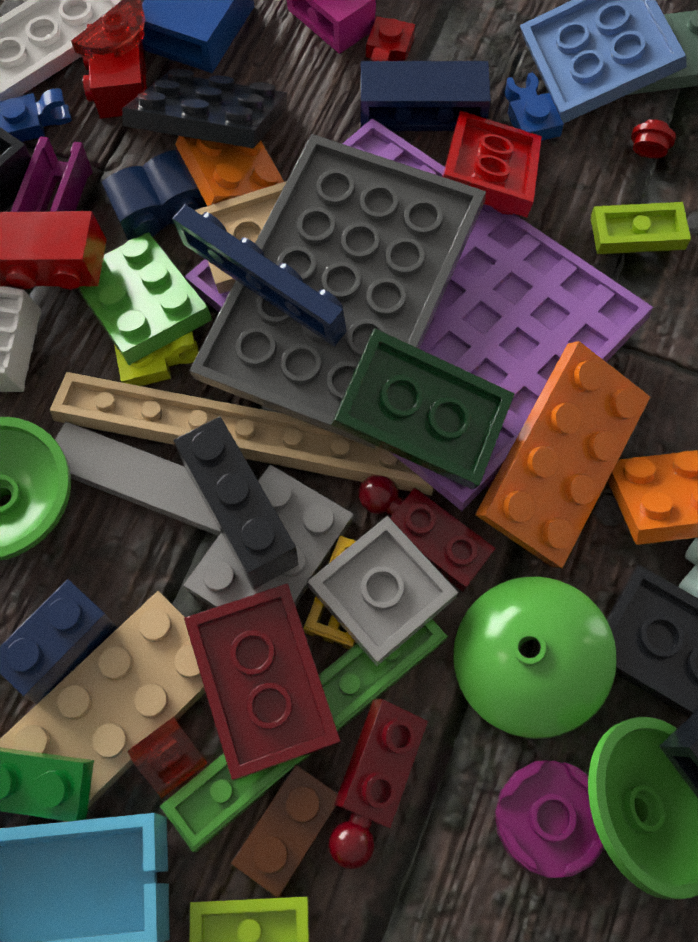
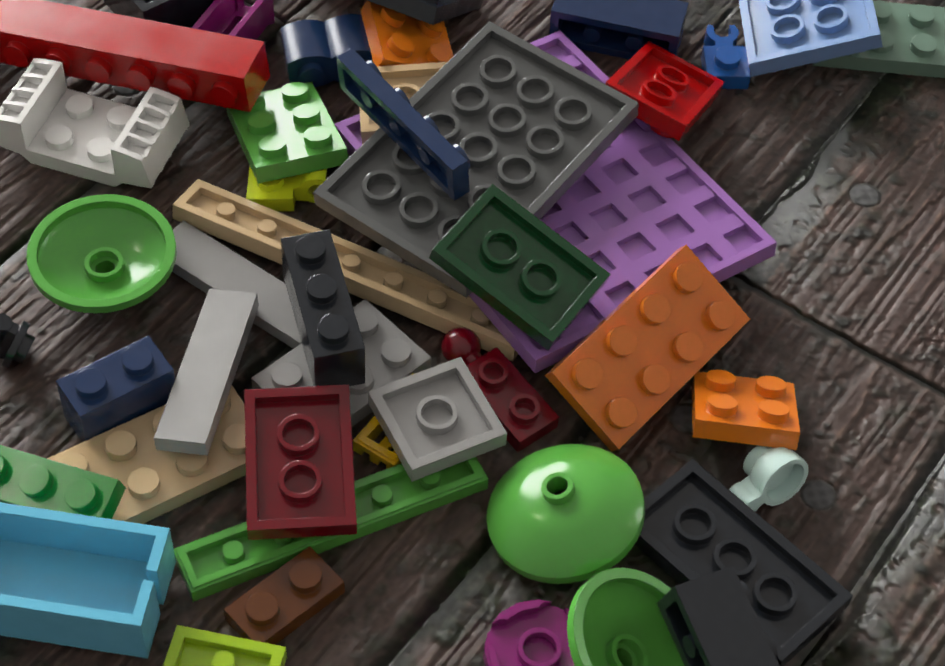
camera: 10 degrees right, 15 degrees down
(138, 600) = (206, 372): none -> light grey tile
(167, 757) = (192, 509): clear red plate -> none
(375, 780) = (380, 576): dark red plate -> none
(640, 228) = (796, 181): lime plate -> none
(652, 138) = (836, 107): red plate -> none

